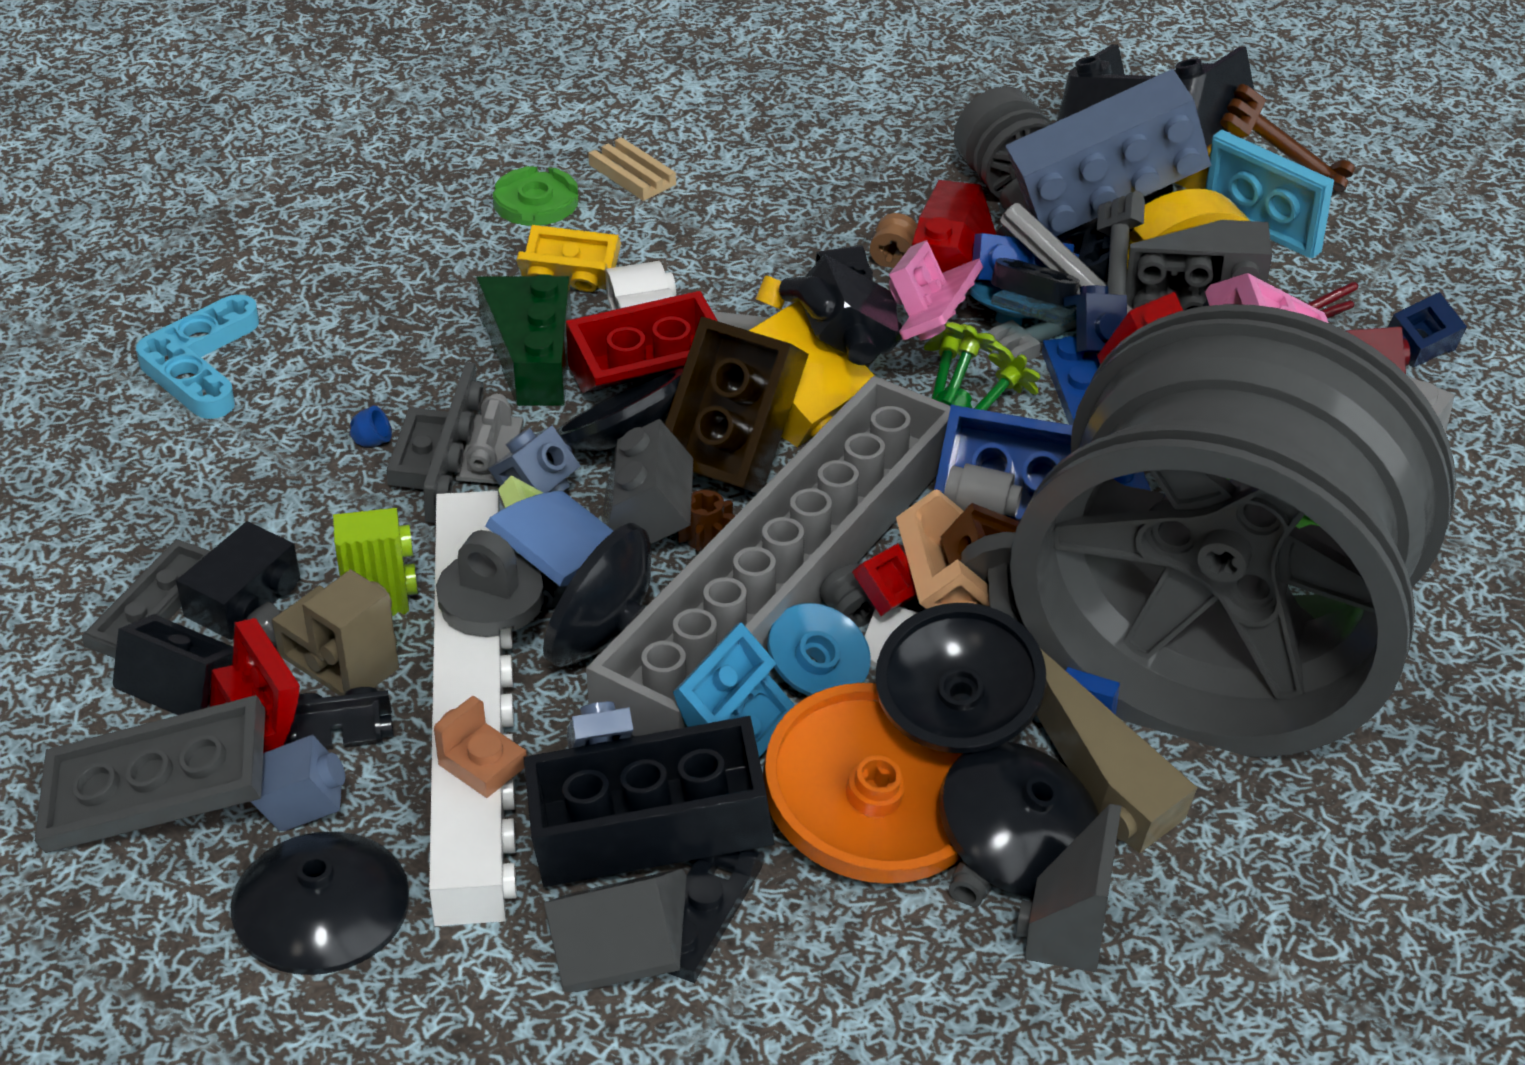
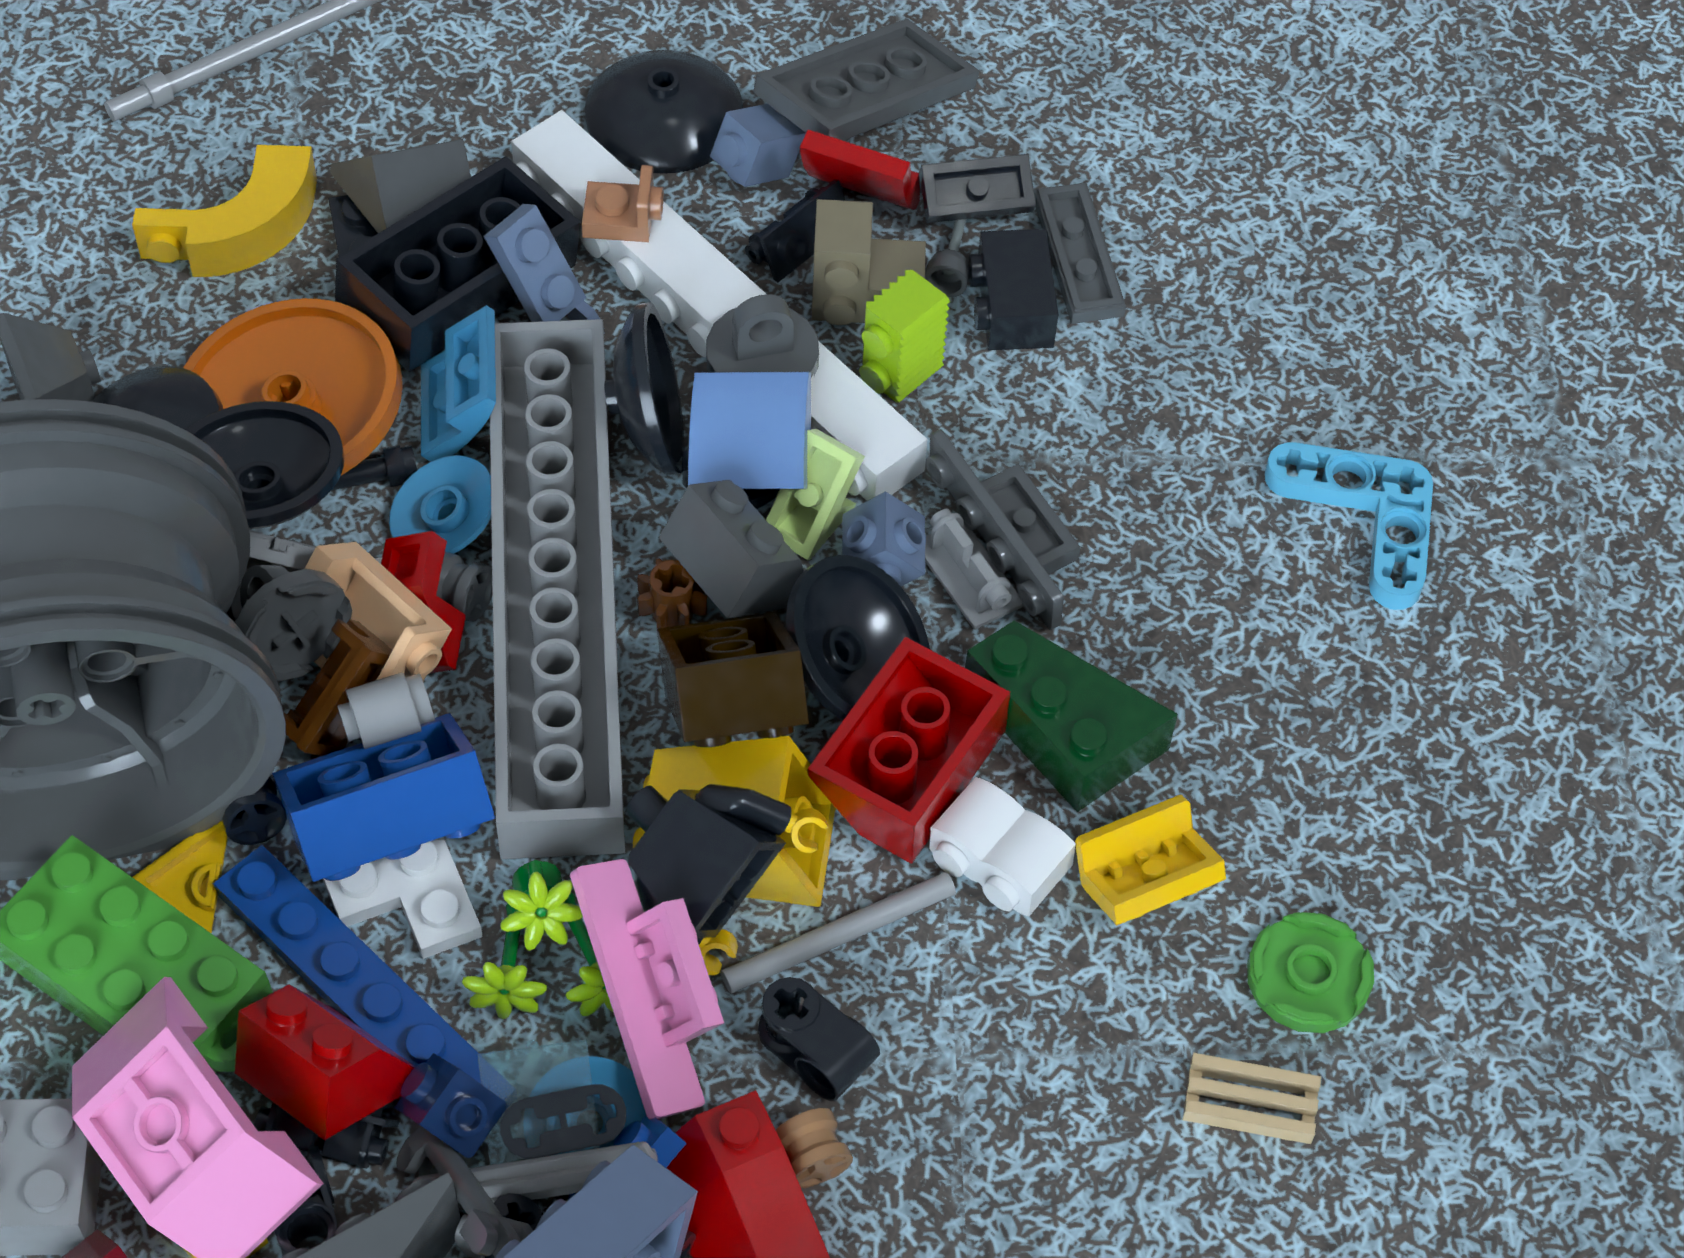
camera: 140 degrees right, 15 degrees up
(370, 427) = (1095, 513): blue hinge -> none
(790, 971) = (242, 229): none -> yellow arch

